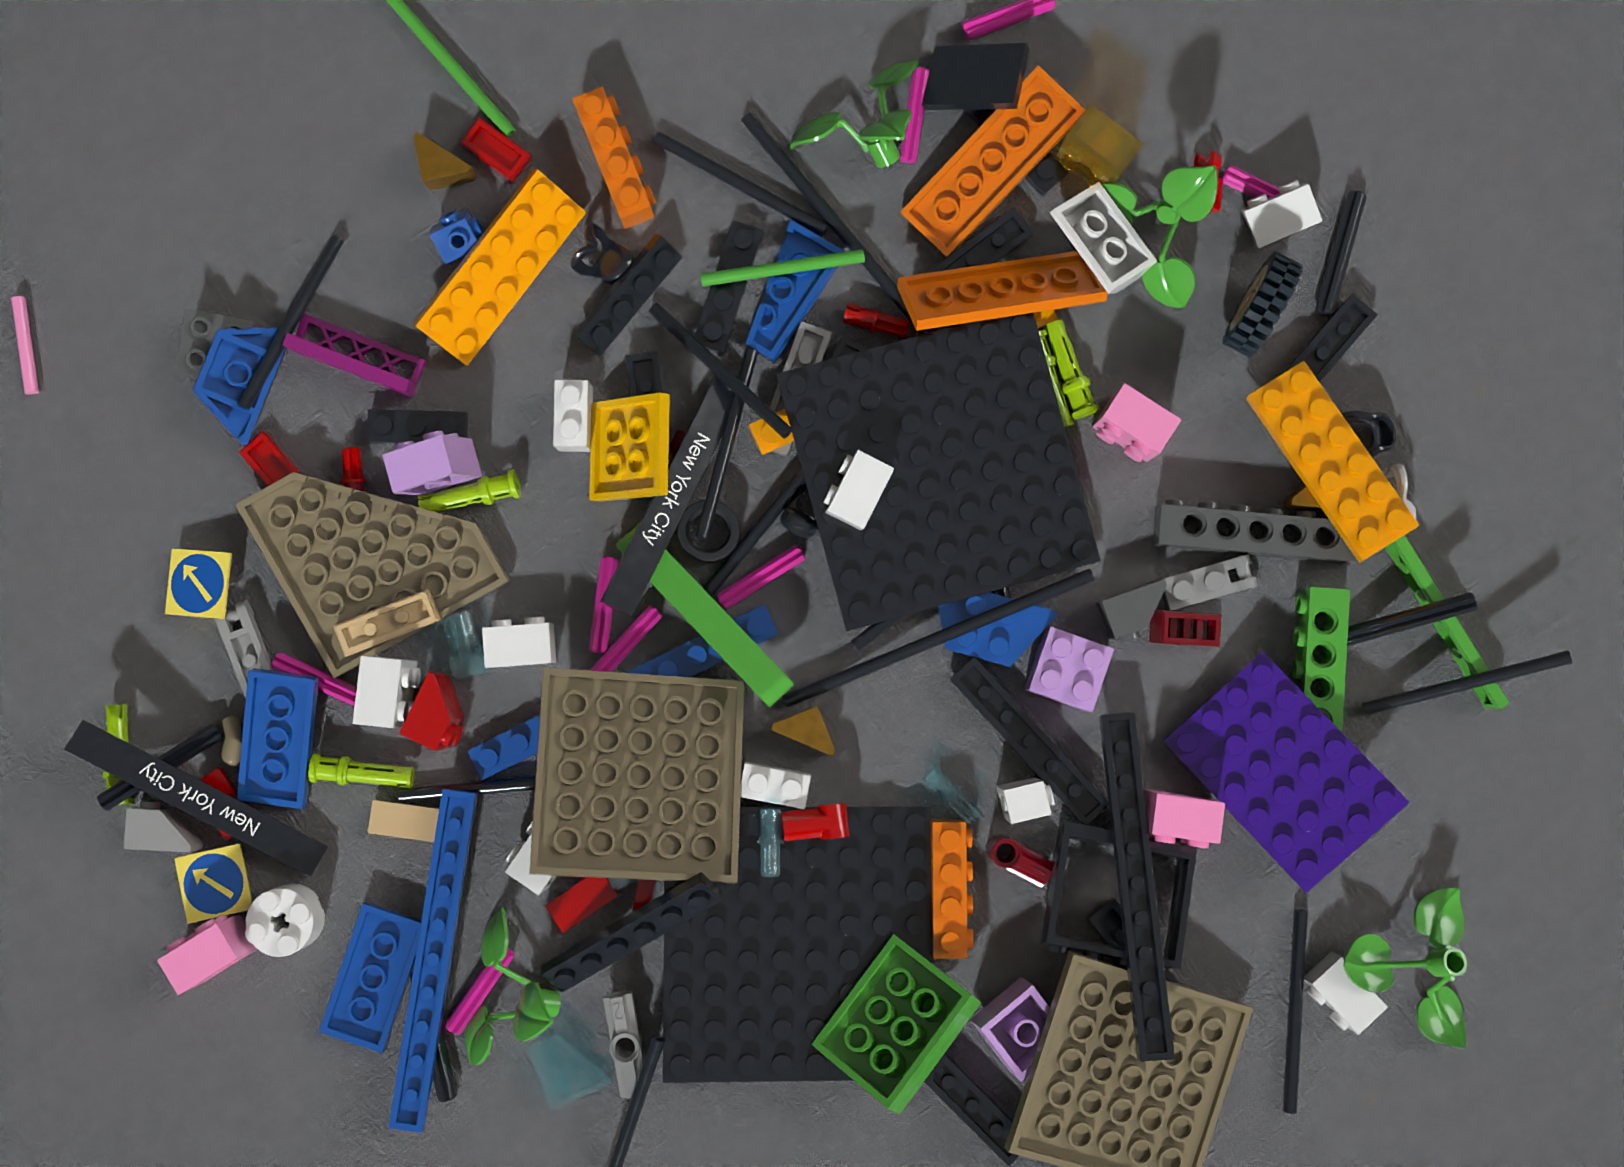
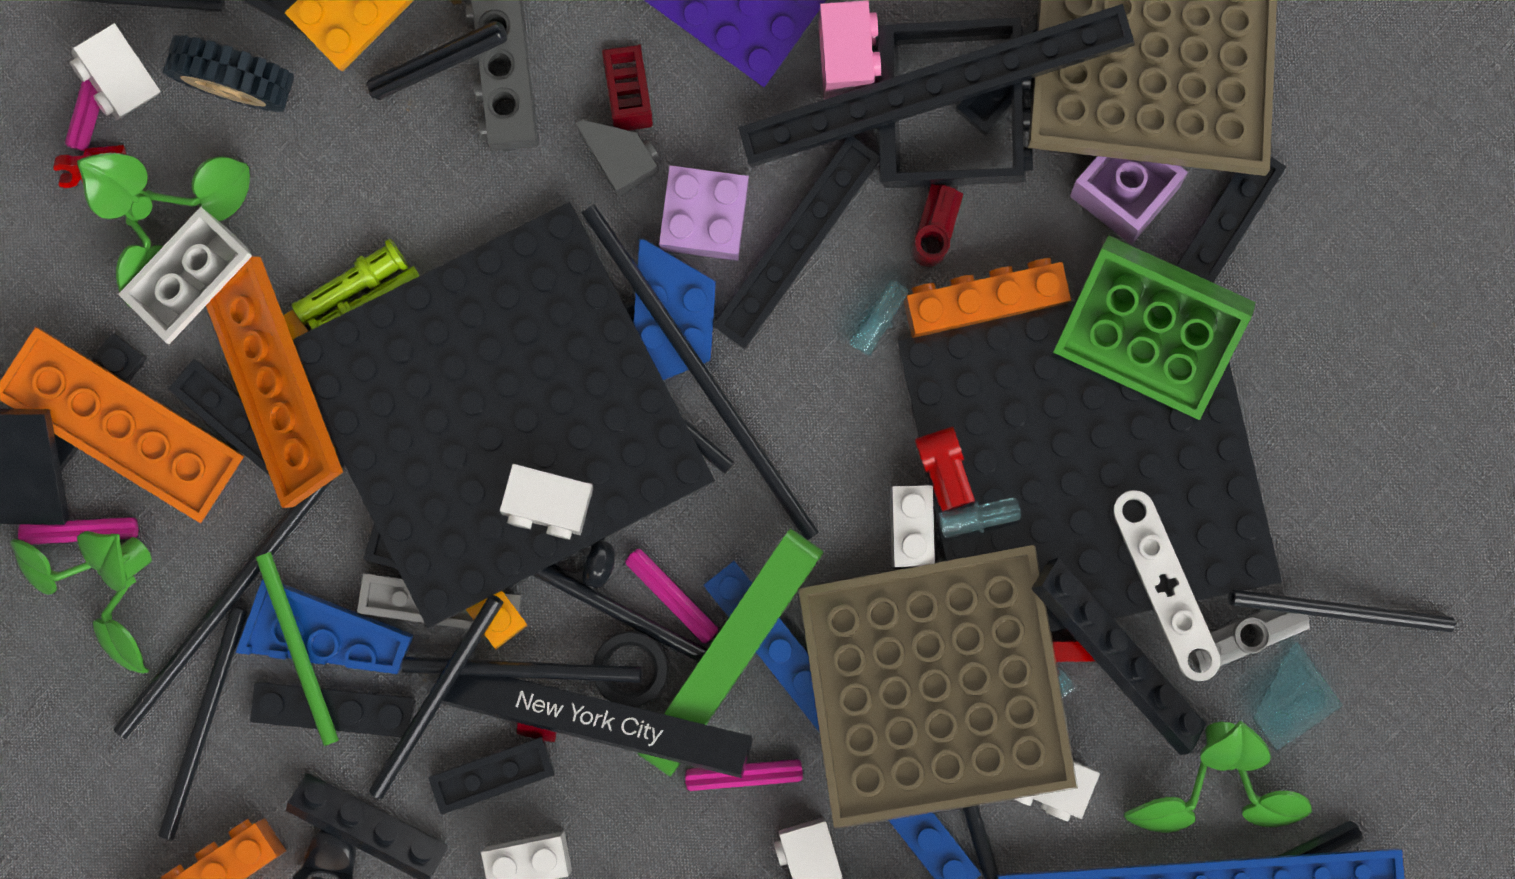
camera: 110 degrees left, 0 degrees up
(475, 996) = (1233, 824): dark pink axle -> none
(580, 901) = (1096, 725): red tile -> none
(628, 640) = (780, 737): dark pink axle -> none
(629, 447) = (551, 784): yellow plate -> none
(654, 989) = (1177, 614): none -> white piece
(806, 728) = (838, 503): pearl gold slope -> none
(875, 321) = (338, 524): red axle -> none
(1025, 799) = (866, 232): white brick -> none
(1098, 148) = (78, 302): clear yellow brick -> none
(1135, 424) = (400, 193): bright pink brick -> none
(1208, 583) = (569, 72): light grey plate -> none
(1239, 477) = (437, 60): none -> black axle

